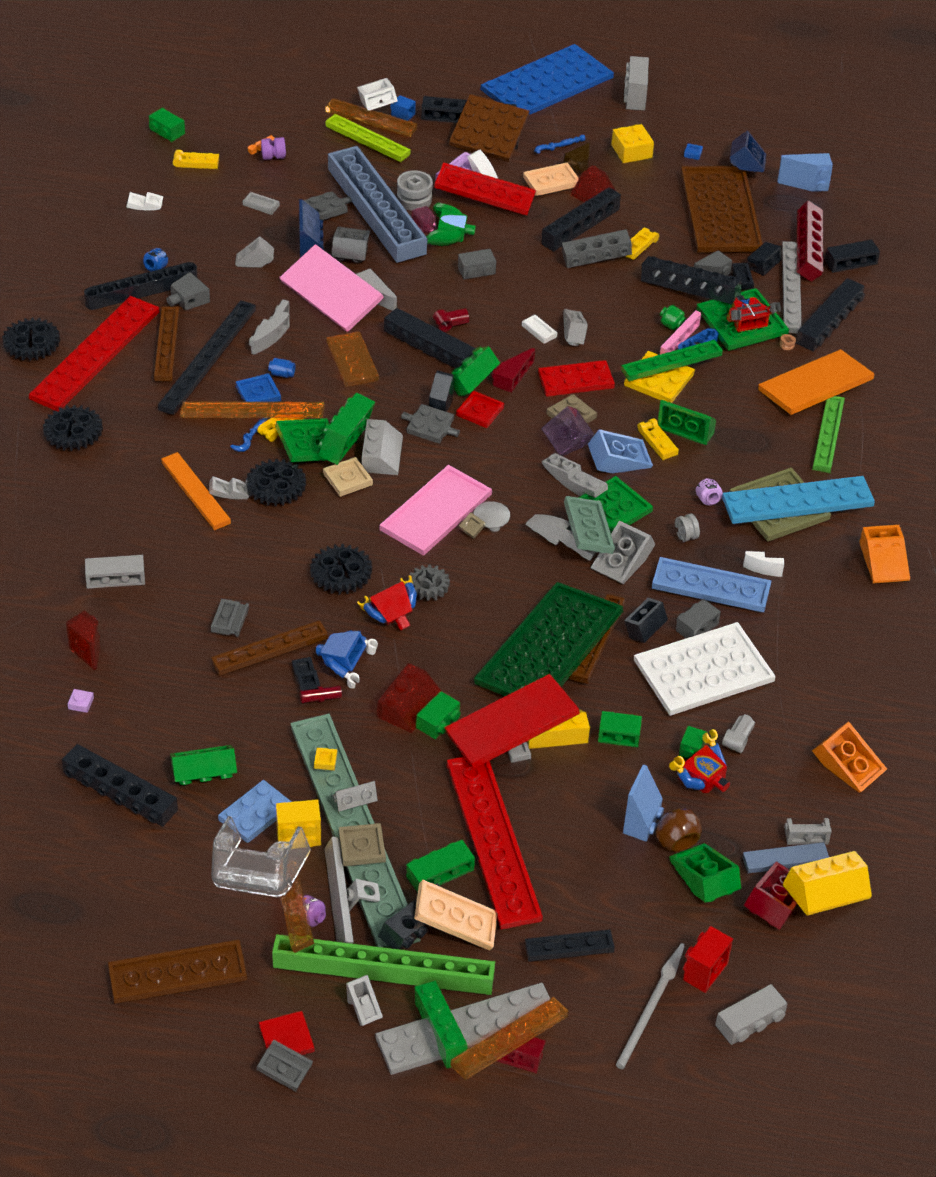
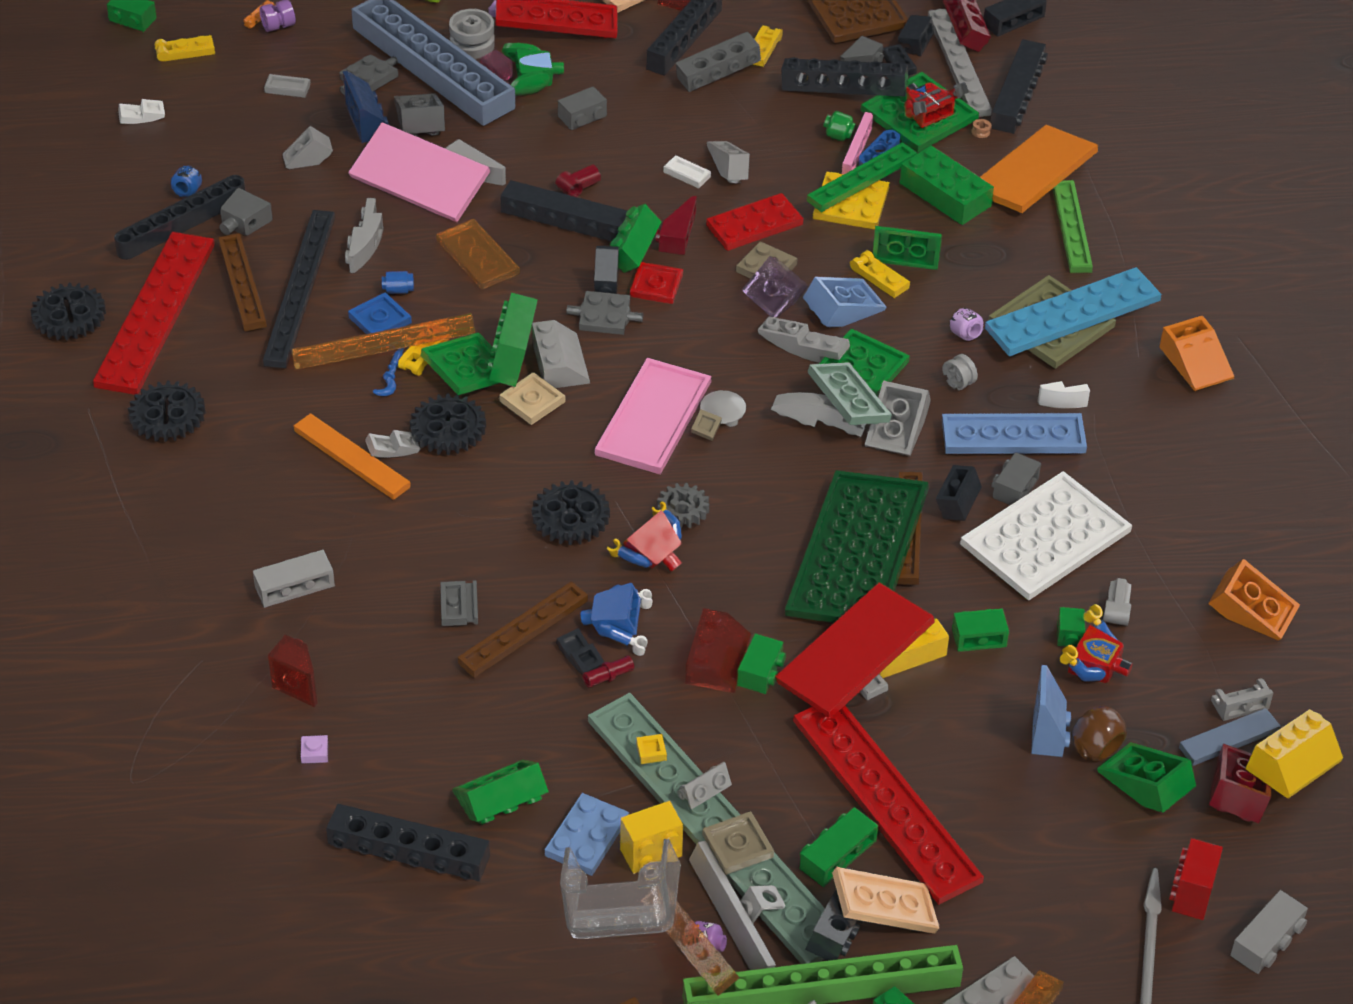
camera: 15 degrees left, 0 degrees up
(569, 945) = (1027, 903): black plate -> none
(738, 380) = (946, 185): none -> green brick

